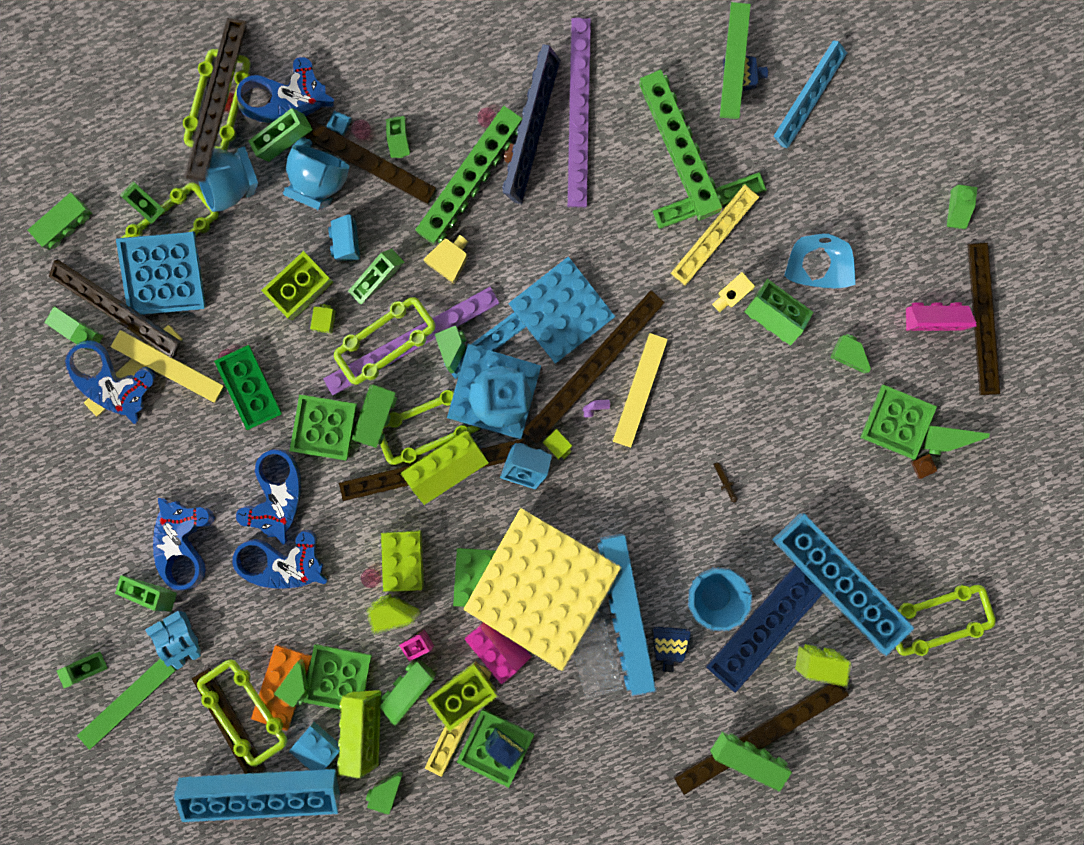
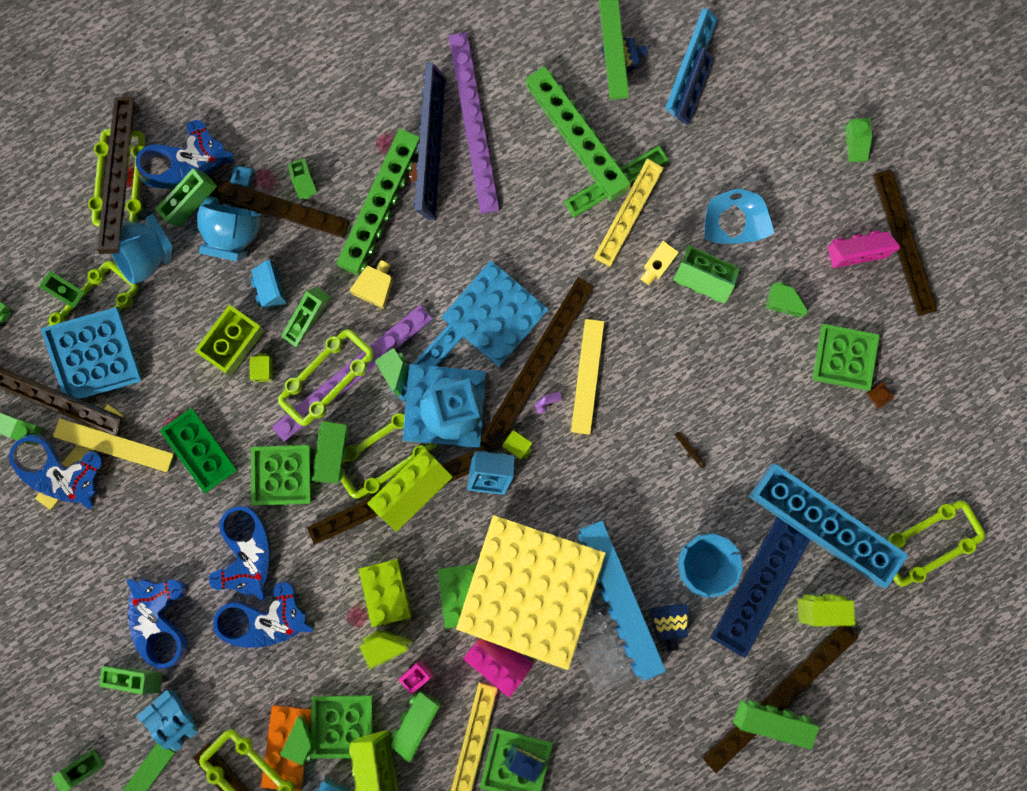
camera: 20 degrees left, 5 degrees down
(462, 696) = (472, 718): lime brick -> none
(807, 118) = (694, 86): none -> dark blue tile
(947, 439) = (895, 364): bright green slope -> none

